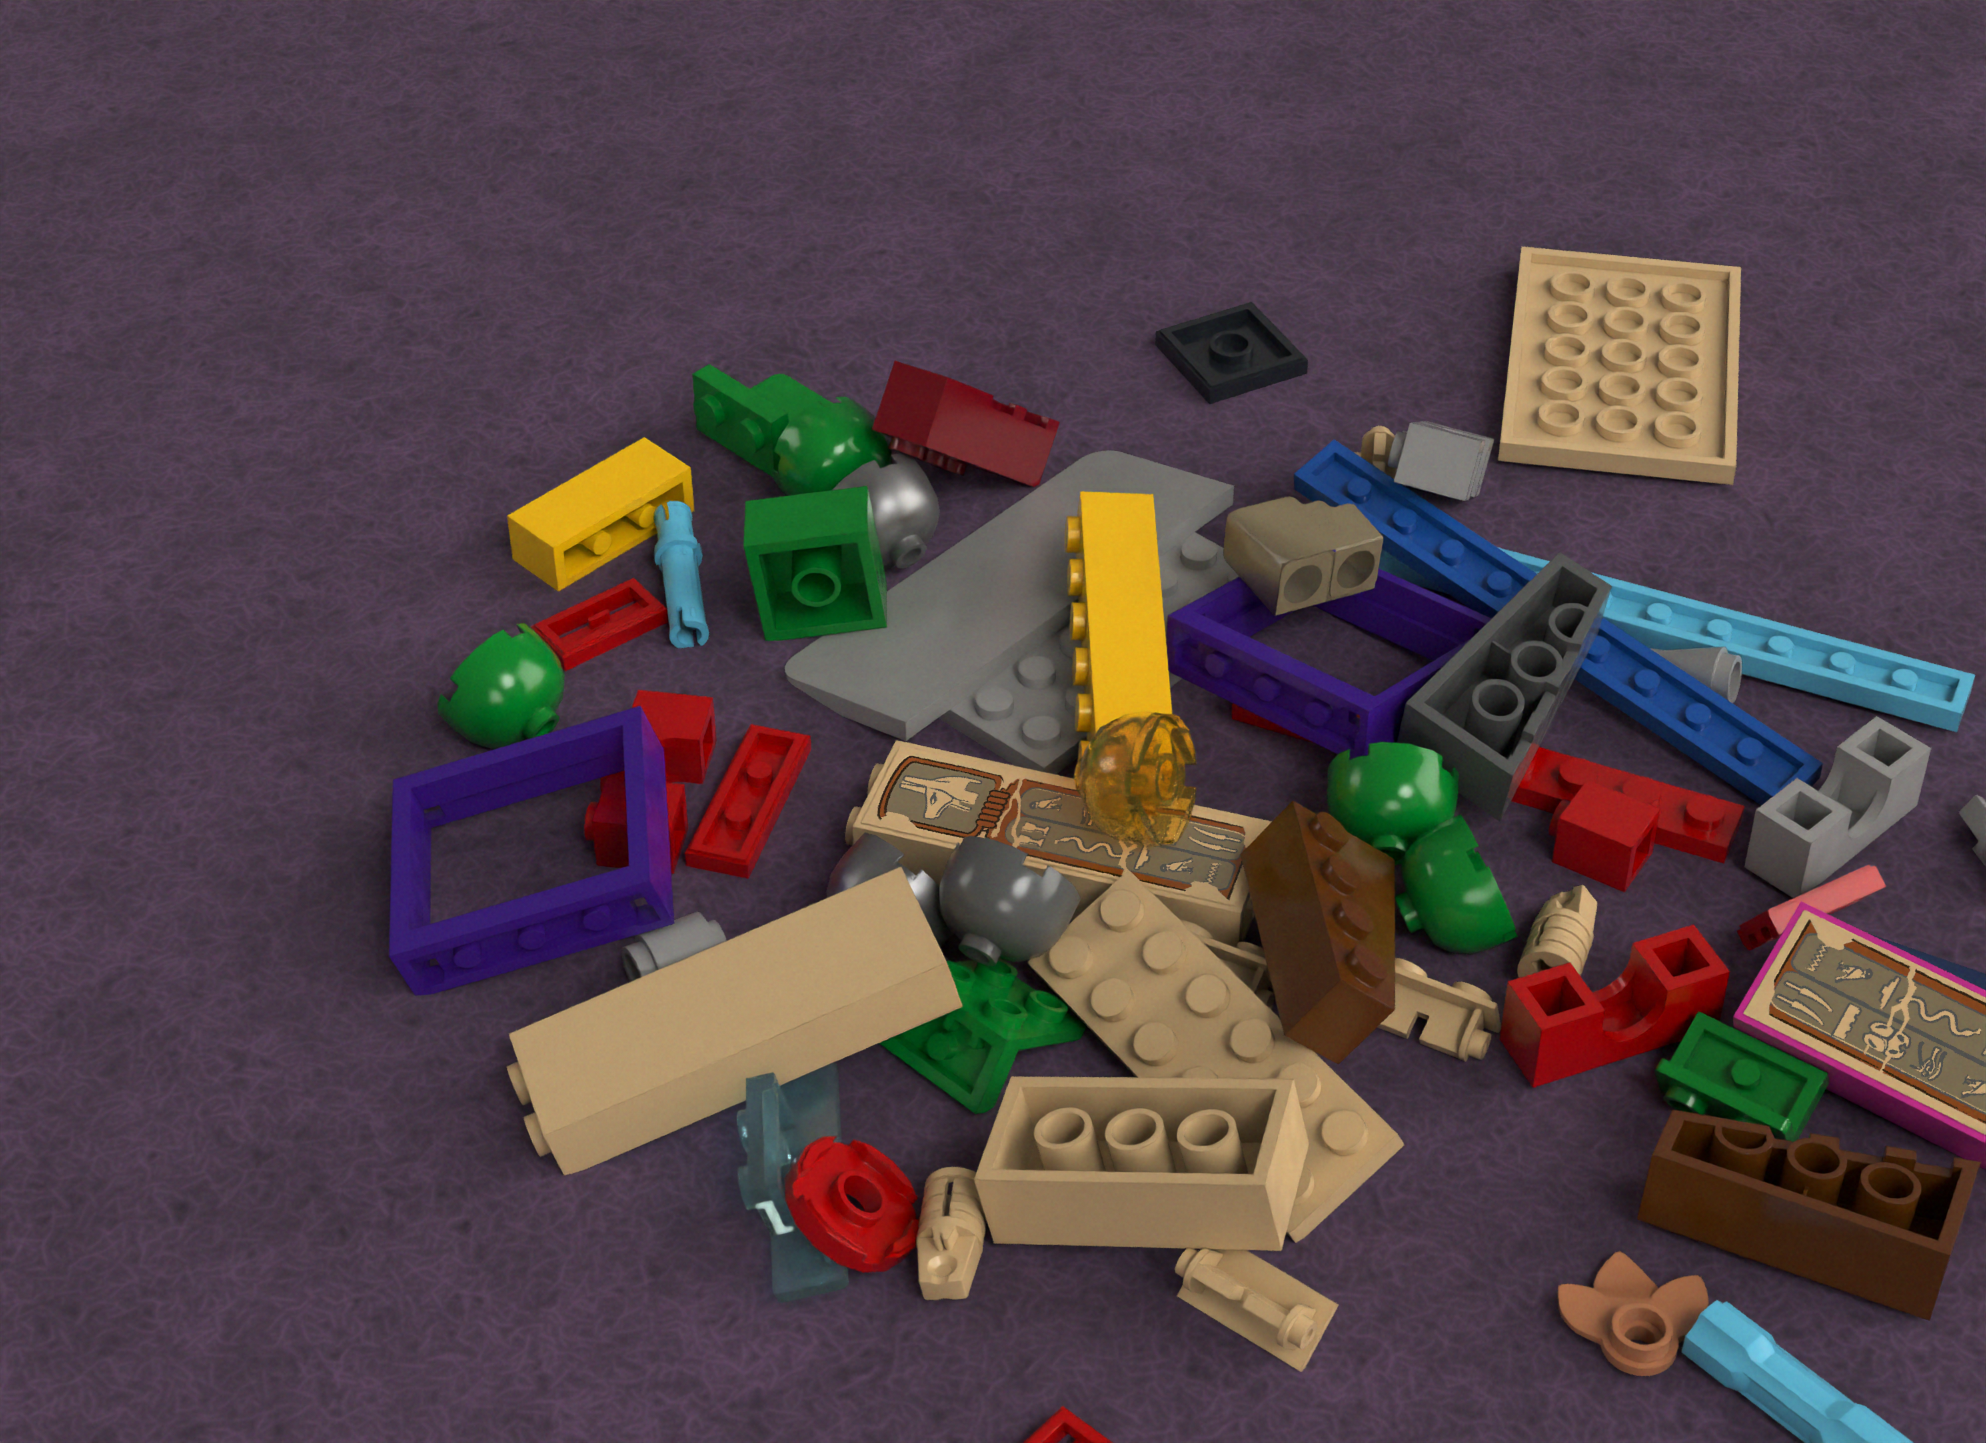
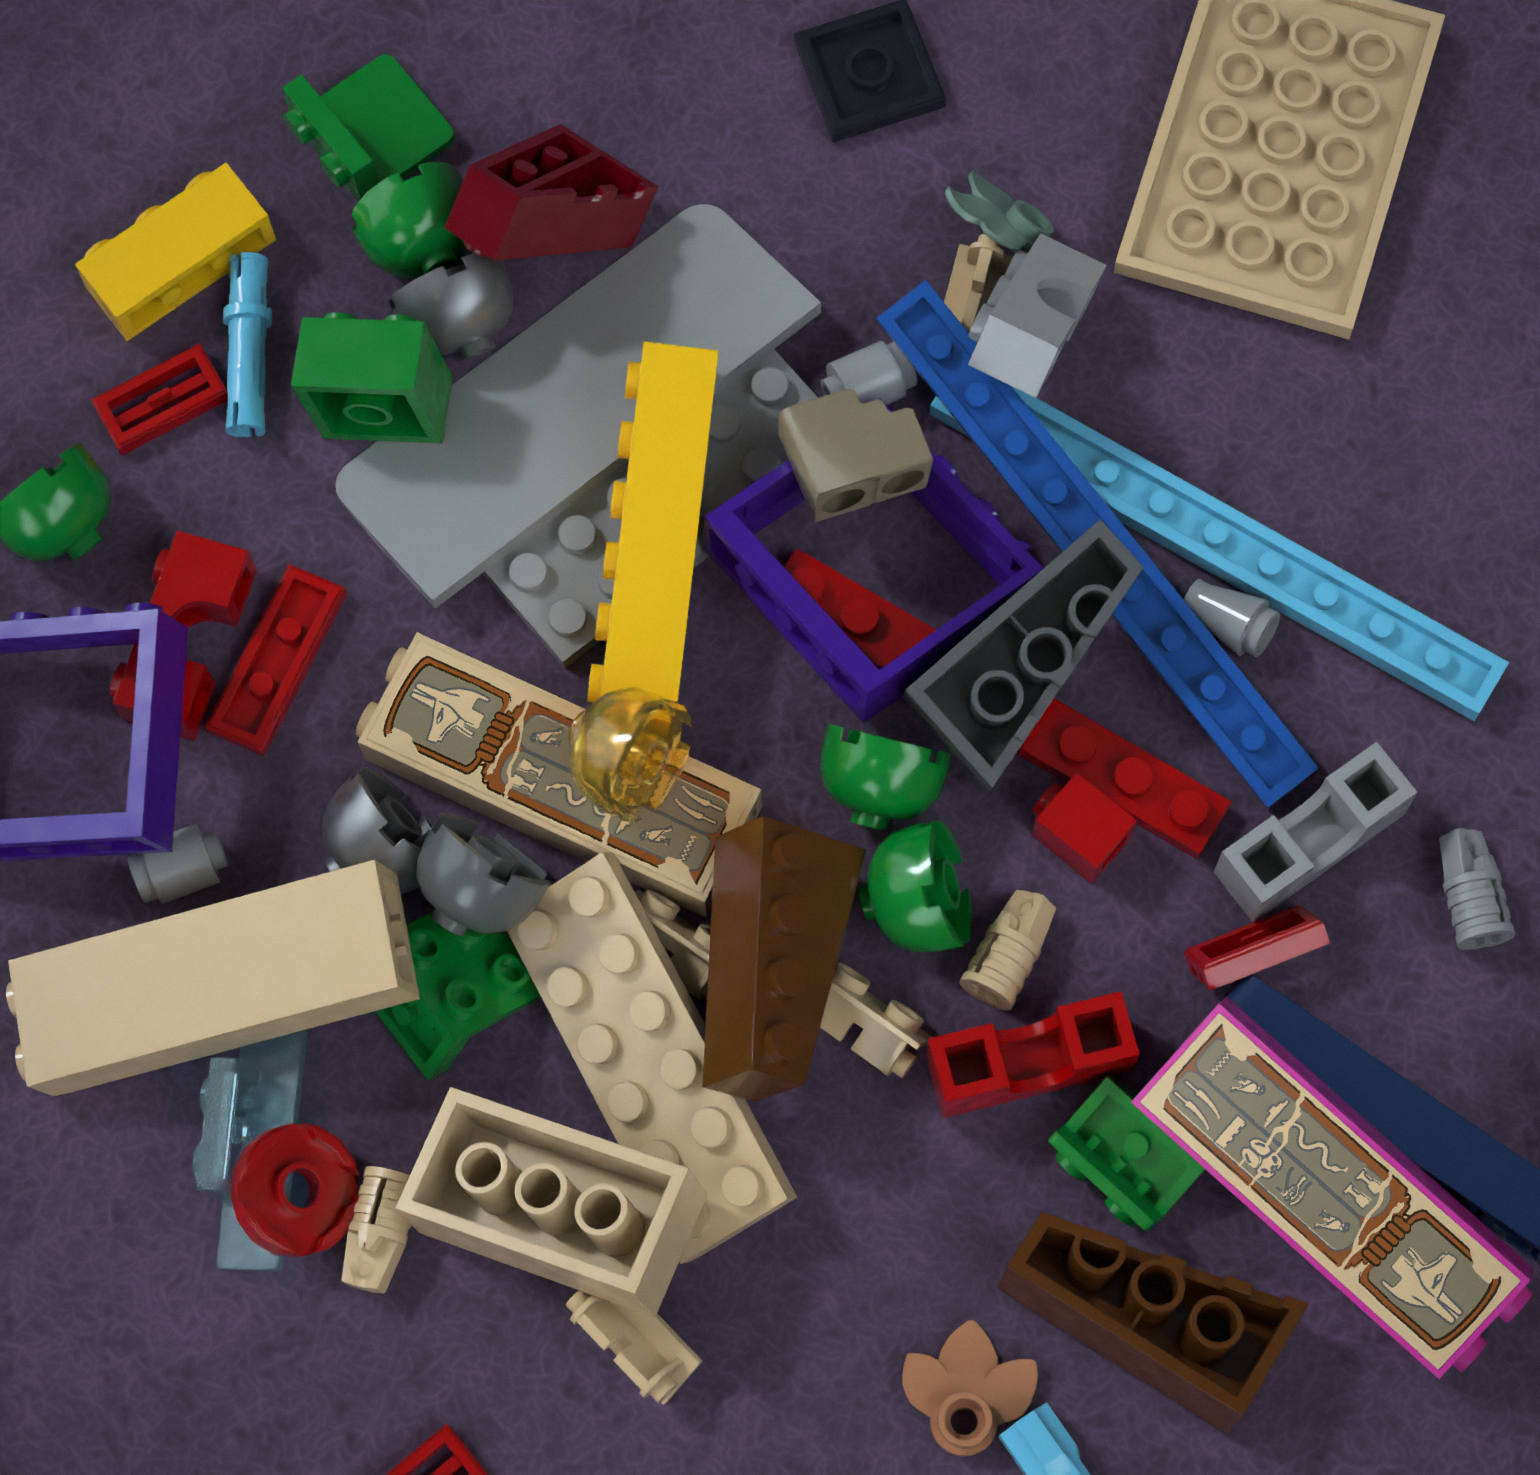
camera: 10 degrees right, 30 degrees up
(1377, 416) = (1001, 218): none -> sand green plate

